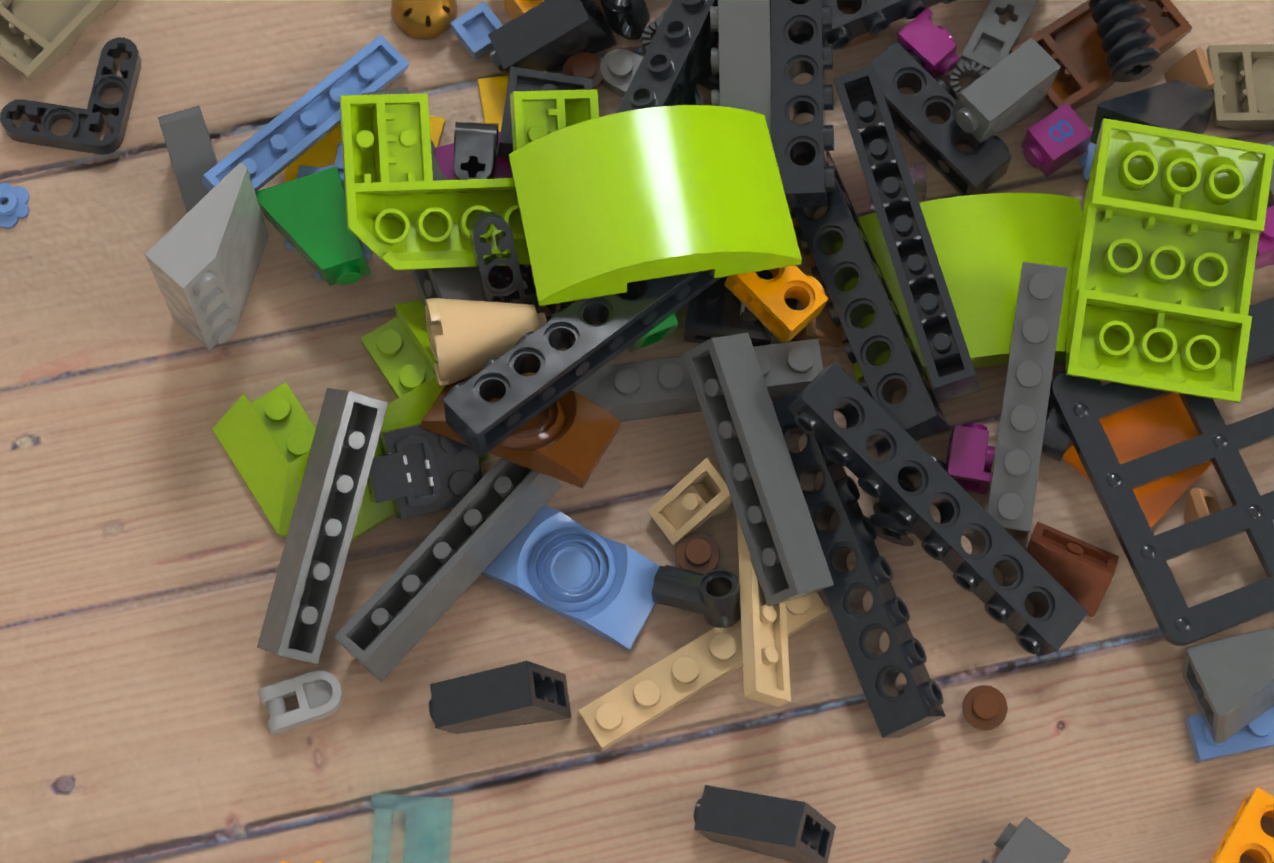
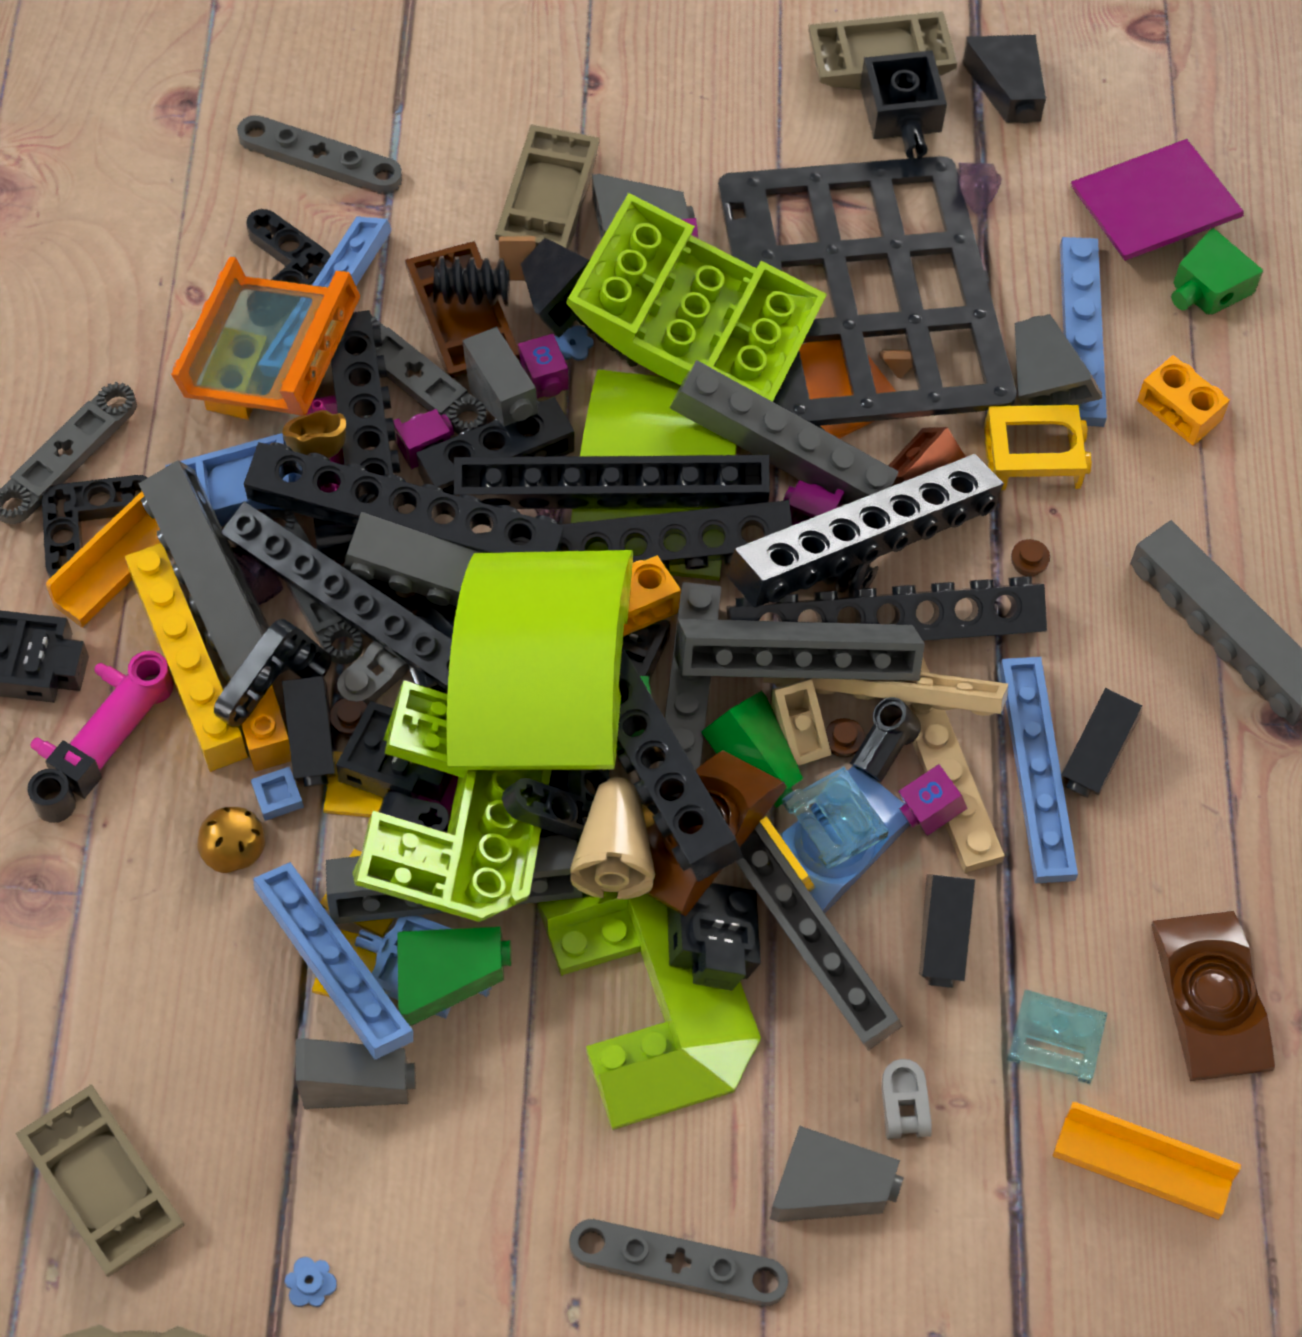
camera: 75 degrees left, 10 degrees down
(87, 120) = (245, 1180): black beam -> none
(89, 553) = (711, 1272): none -> dark grey piece
(200, 645) = (834, 1180): none -> dark grey slope
(212, 259) = (472, 1058): light grey slope -> none
(322, 525) = (756, 1027): dark grey brick -> none
(521, 514) = (782, 846): none -> yellow piece
(597, 569) = (846, 812): none -> clear light blue plate
(634, 653) = (931, 800): none -> magenta brick
(645, 461) = (755, 736): none -> green slope
(716, 763) = (1038, 771): none -> medium blue plate
(1116, 727) = (1004, 465): none -> yellow panel

